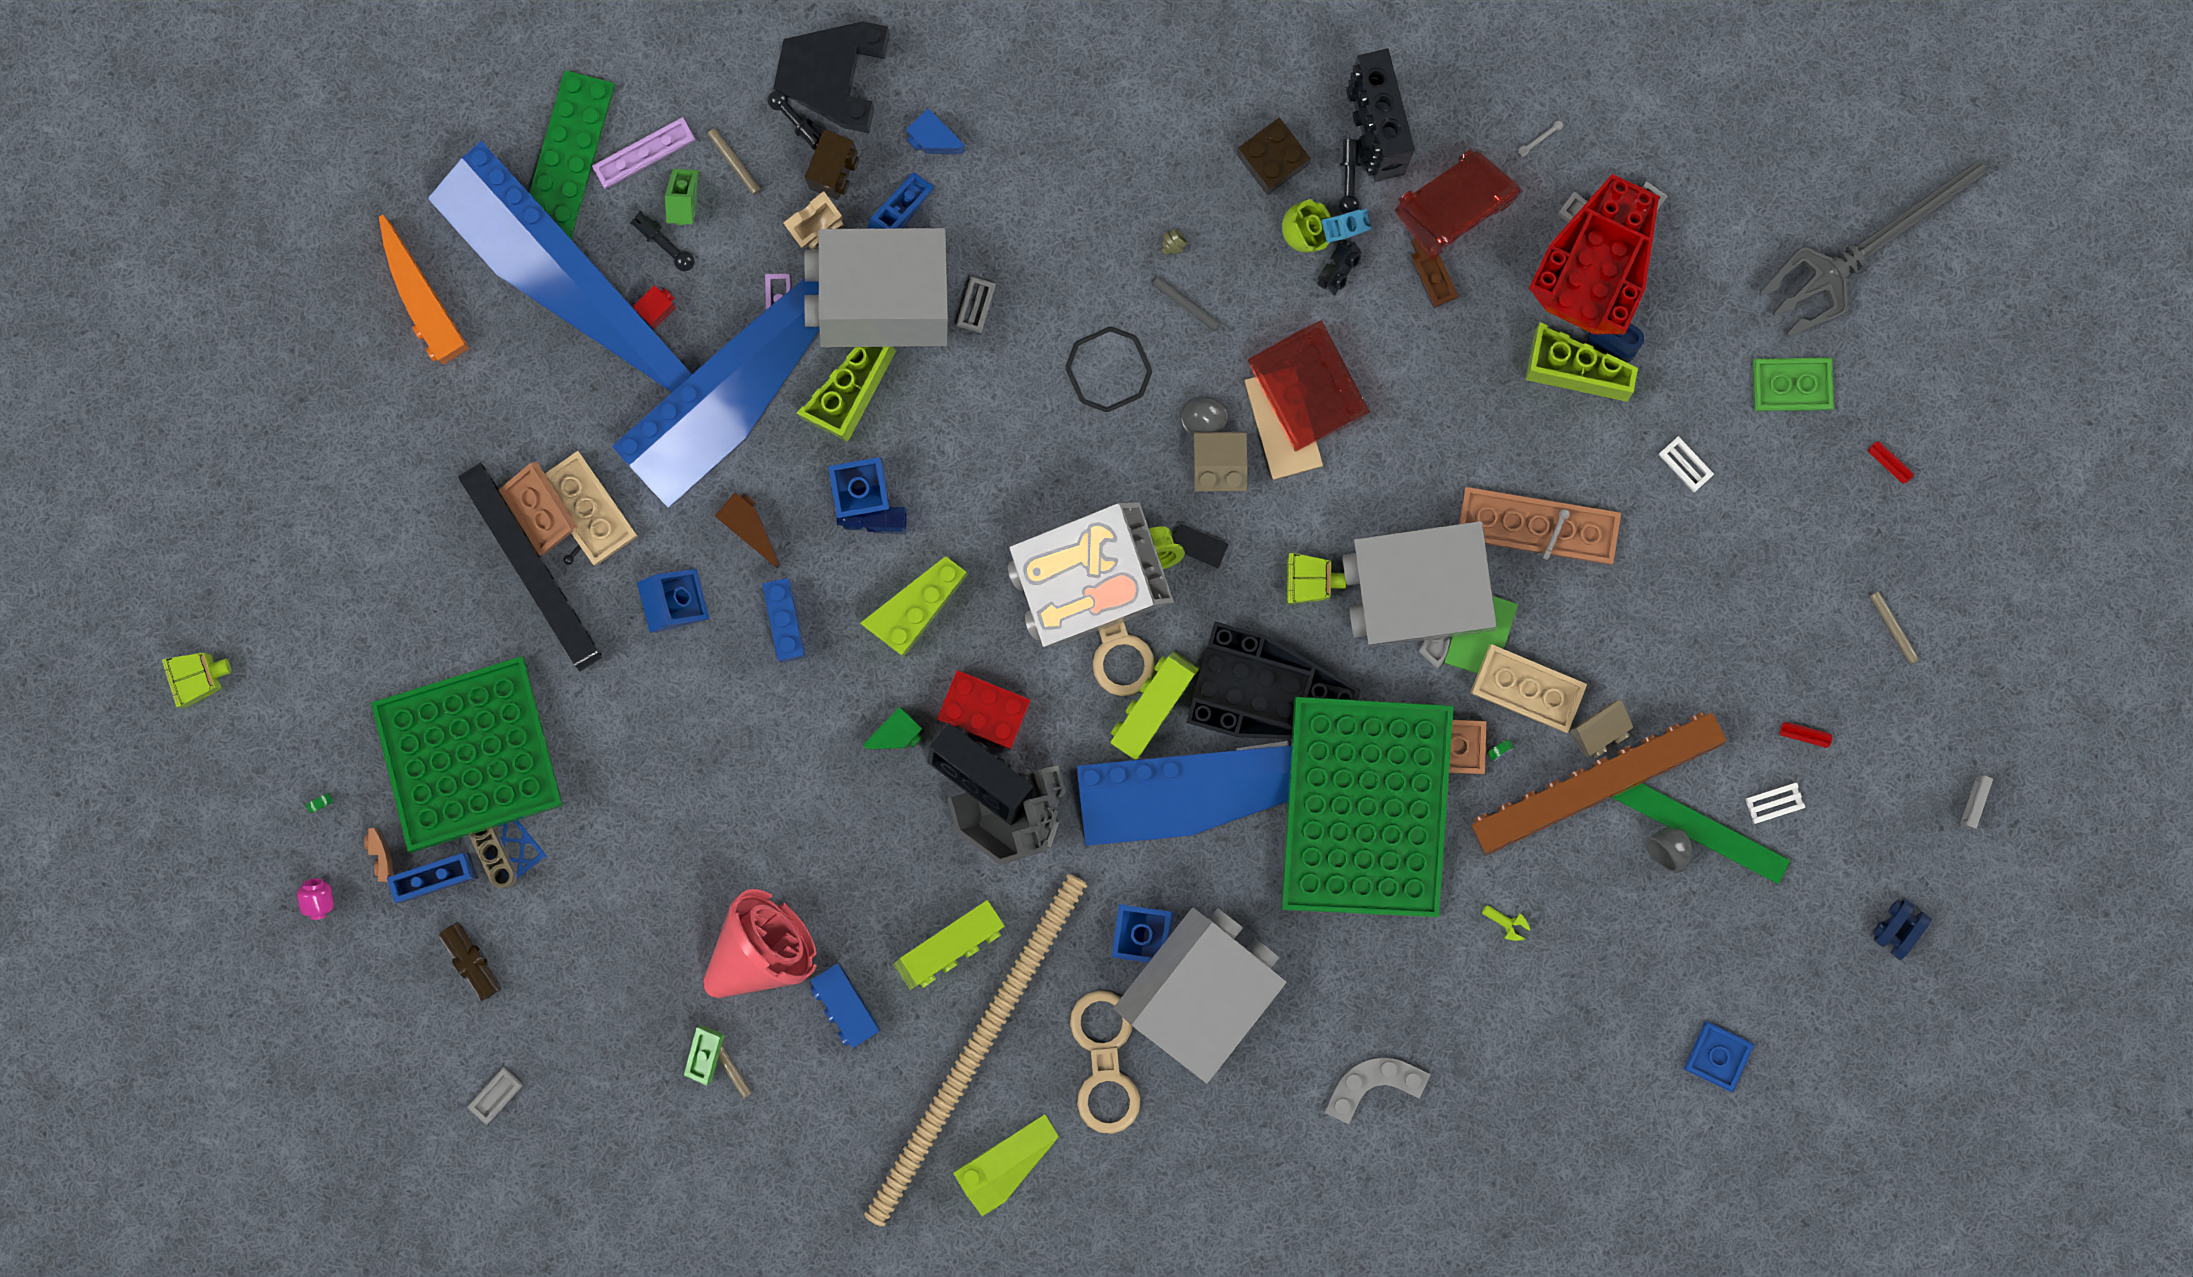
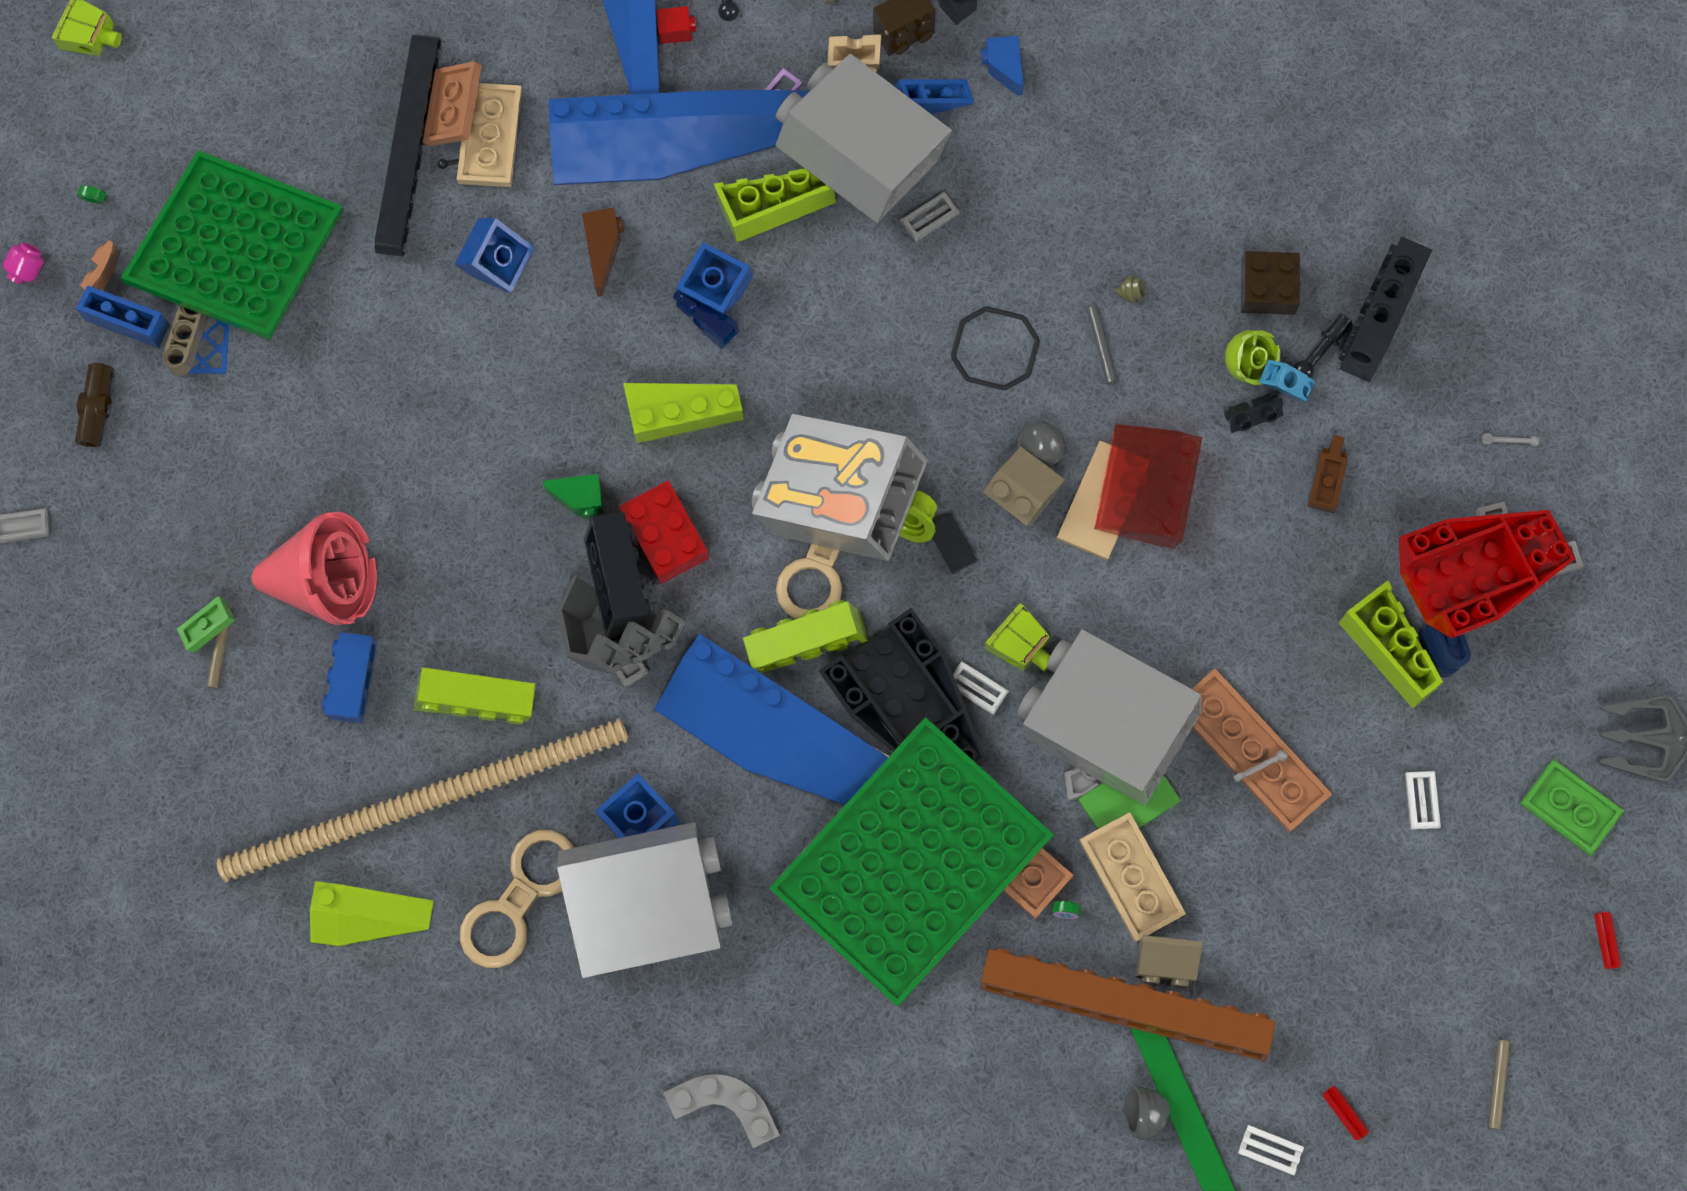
camera: 40 degrees right, 10 degrees down
(784, 620) = (566, 337): blue brick -> none
(1328, 637) = (997, 701): none -> white tile
(1456, 202) = (1395, 431): clear red windscreen -> none
(1506, 922) = (952, 1060): lime bar -> none

